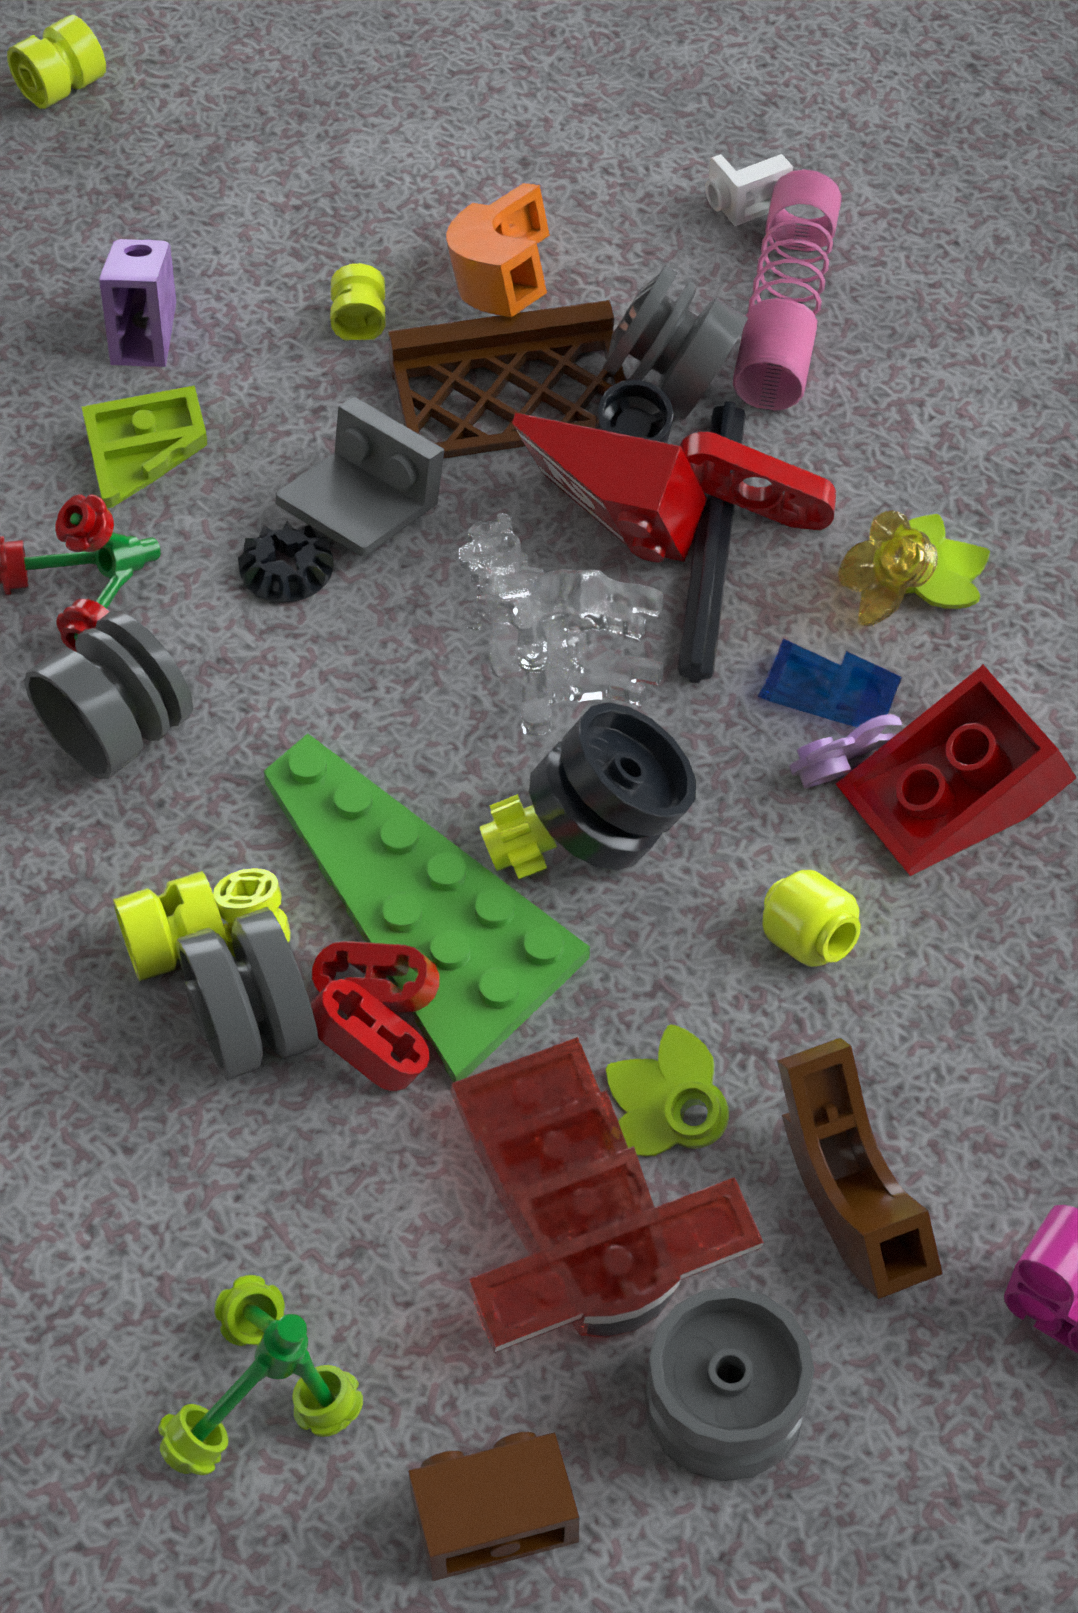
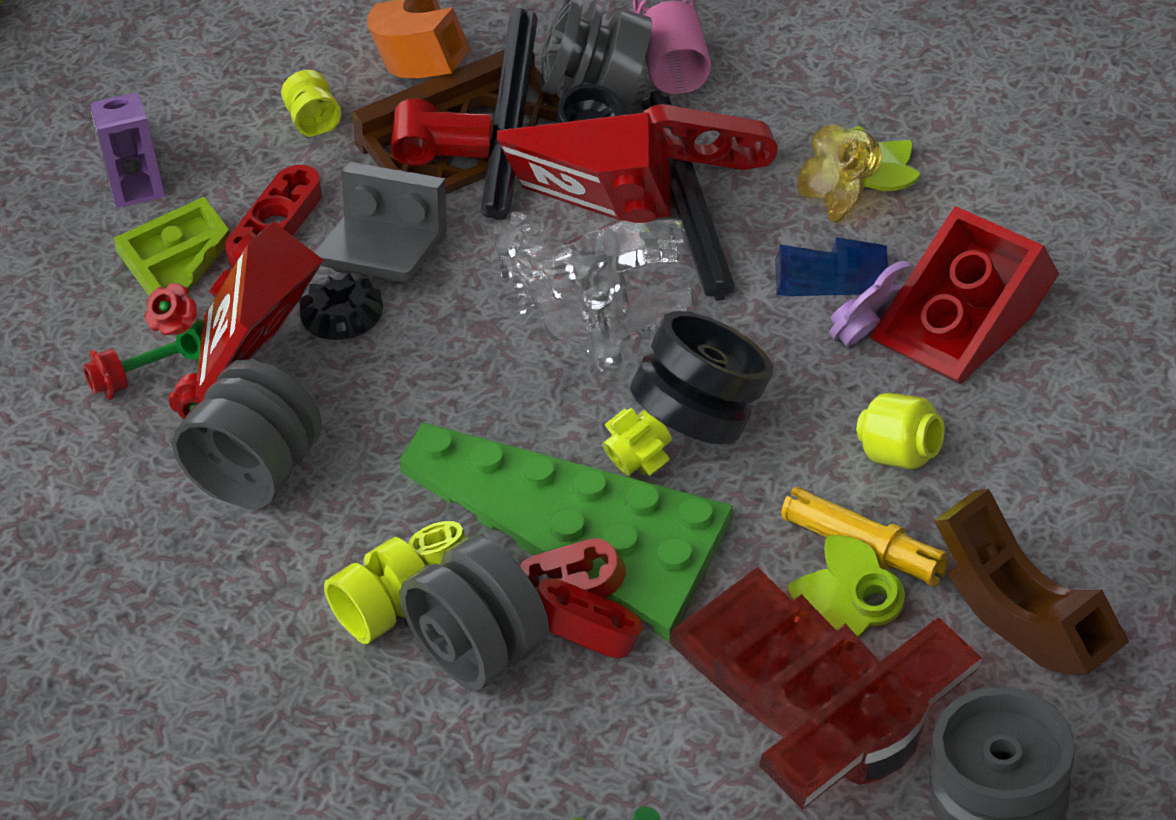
camera: 15 degrees left, 10 degrees down
(179, 538) = (253, 299): none -> red slope
(268, 411) = (277, 202): none -> red beam
(456, 381) = (424, 132): none -> red piece
(558, 378) = (509, 111): none -> black axle
(734, 1054) = (889, 542): none -> yellow pin

